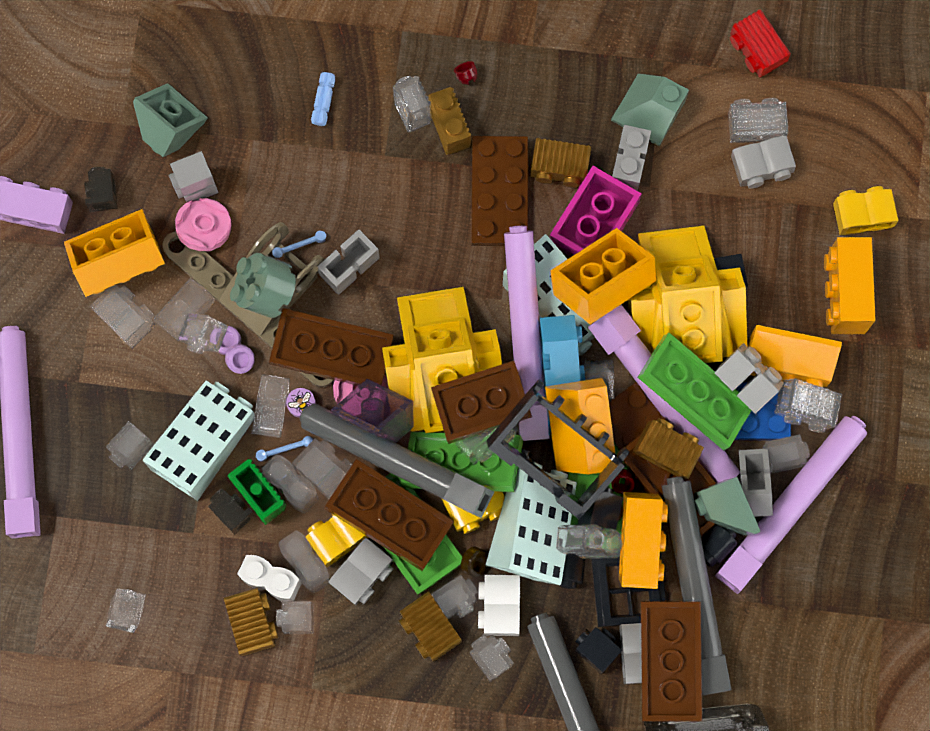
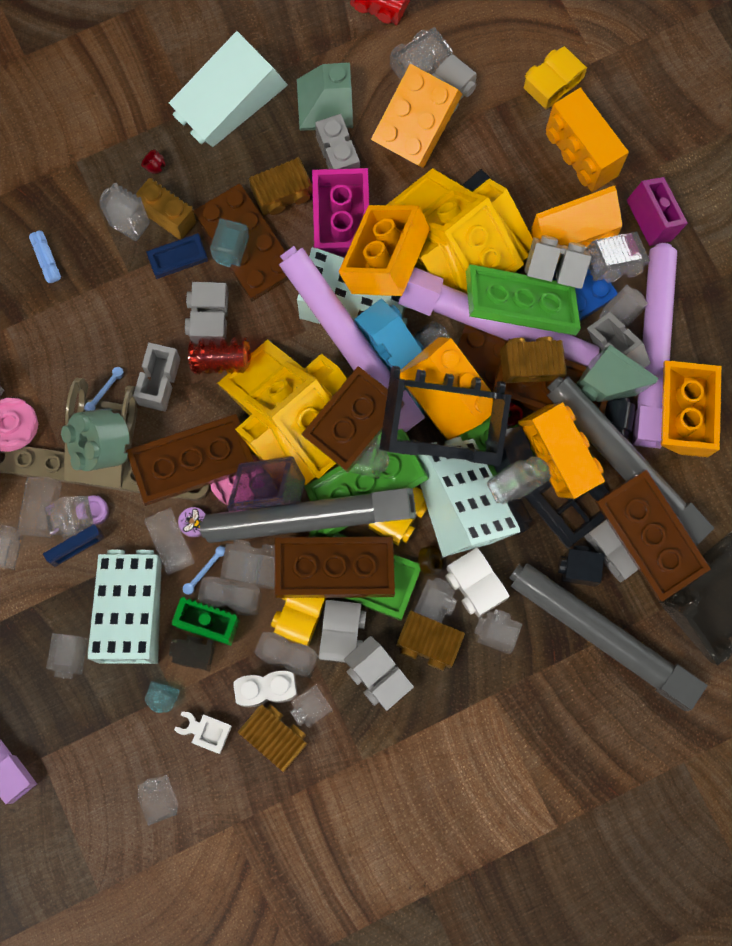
camera: 35 degrees left, 0 degrees up
(182, 530) = (161, 697): none -> clear light blue plate
(191, 360) = (74, 545): none -> dark blue tile
(201, 583) = (208, 732): none -> white plate
(239, 358) = (115, 518): lavender tile -> none
(367, 625) = (378, 673): none -> light grey piece
(411, 279) = (219, 357): none -> clear red piece
(421, 239) = (208, 311): none -> light grey piece
(434, 167) = (177, 256): none -> dark blue tile
(482, 185) = (229, 243): none -> clear light blue brick
(568, 49) = (226, 91): none -> light aqua slope
(715, 173) = (416, 115): none -> light orange brick
(780, 575) = (691, 408): none -> light orange slope
(872, 387) = (656, 211): none -> magenta brick

